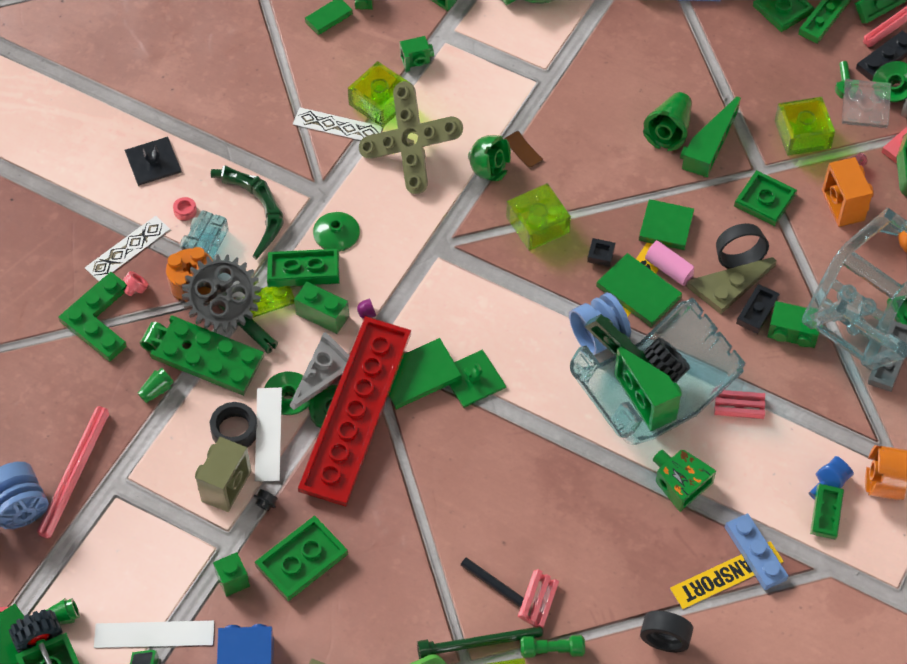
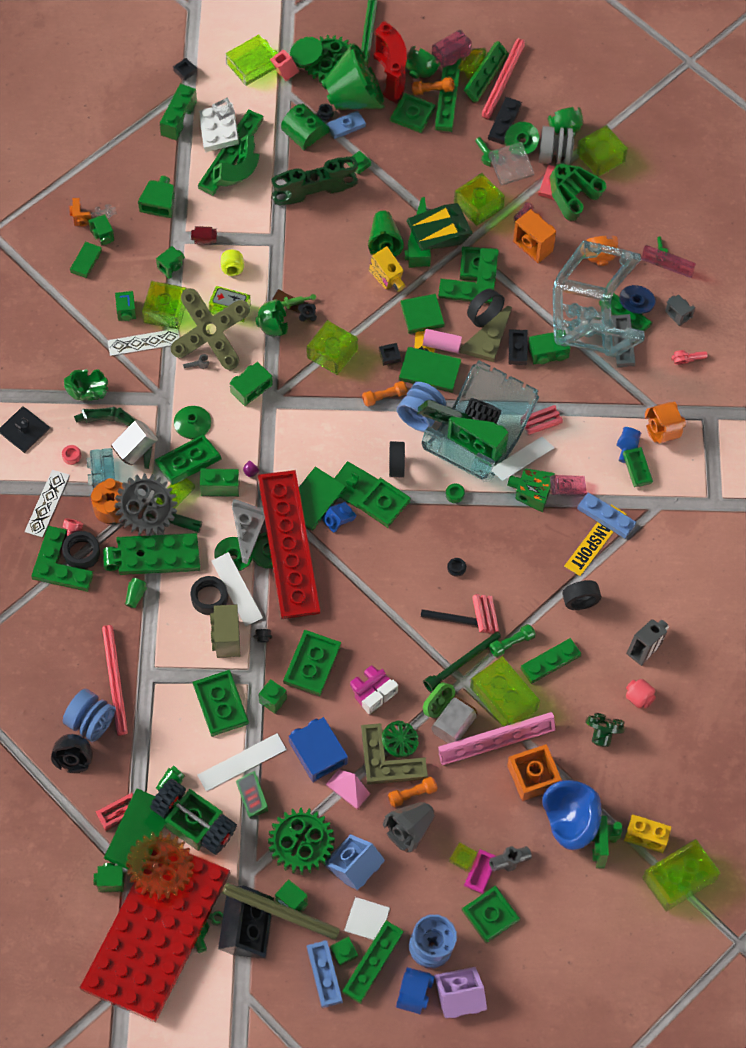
camera: 30 degrees left, 5 degrees up
(124, 298) = (81, 536): none -> black tyre
(172, 554) = (220, 703): none -> green tile
(241, 142) = (86, 387): none -> green hair
(253, 222) = (134, 442): none -> piece
(338, 78) = (125, 306): none -> green brick
(361, 616) = (375, 690): none -> hips
(383, 172) = (203, 365): none -> dark grey hand
(423, 217) = (251, 383): none -> green brick
(434, 404) = (338, 515): none -> blue bracket
(448, 108) = (224, 297): none -> brick
(469, 41) = (204, 235): none -> dark red brick
(482, 81) = (232, 262): none -> neon yellow head
(495, 414) = (384, 502): none -> green plate
(531, 151) = (295, 301): none -> bright green piece
(534, 162) = (303, 309): none -> black plate
(536, 370) = (396, 459): none -> black tyre
(537, 527) = (456, 567): none -> black plate
(550, 291) = (370, 398): none -> orange piece
(586, 441) = (455, 493): none -> green tile
(642, 33) = (327, 178): none -> dark green piece
(650, 158) = (387, 269): none -> yellow torso
(688, 437) = (522, 458): none -> white sticker
(690, 34) = (362, 161): none -> green plate
(726, 493) = (568, 485): none -> clear pink plate
(738, 137) = (440, 227): none -> dark green slope
(763, 214) = (468, 290): none -> green plate

